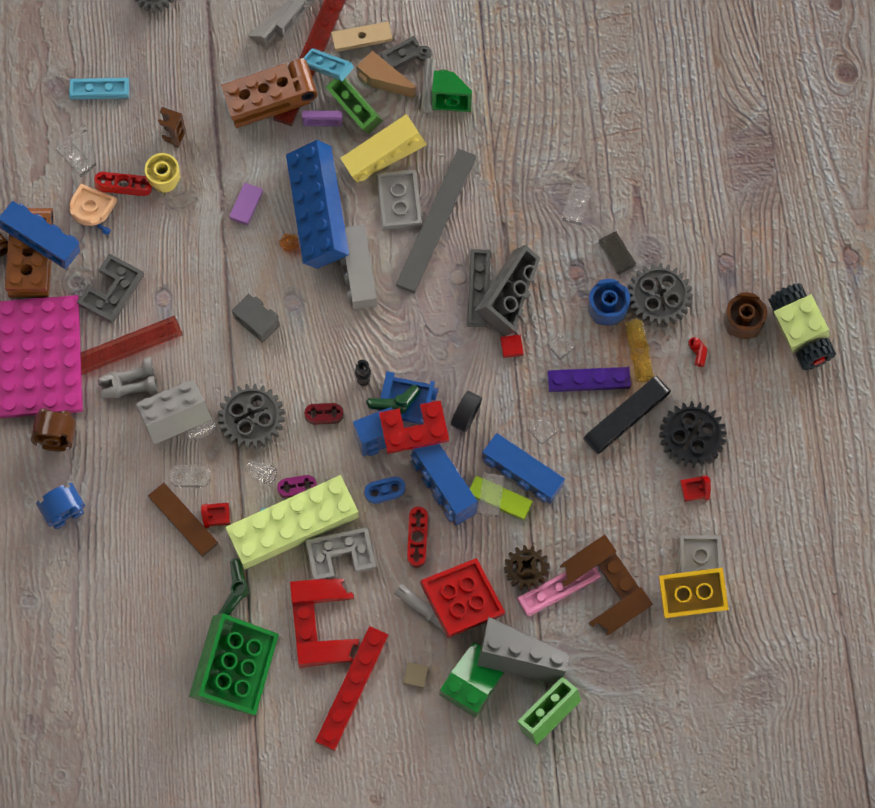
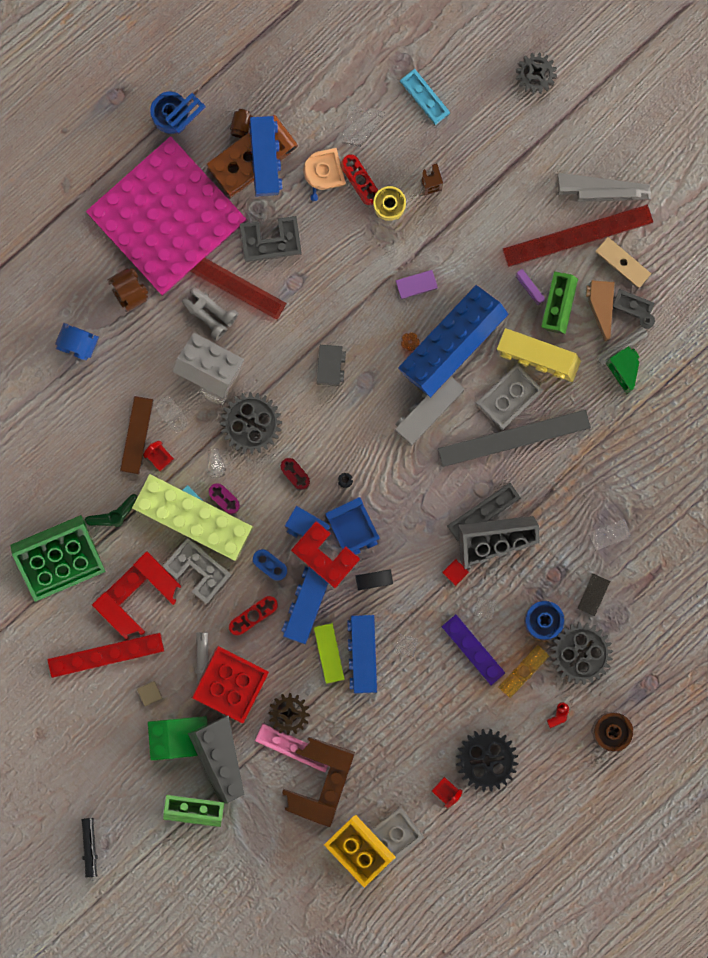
camera: 50 degrees right, 15 degrees up
(269, 92) = (533, 253): dark orange hinge -> none
(328, 64) = (573, 258): medium azure tile -> none
(400, 401) = (340, 526): dark green piece -> none
(491, 495) = (324, 646): clear tile -> none
(627, 415) = (465, 699): black beam -> none
(802, 326) = (635, 780): brick -> none

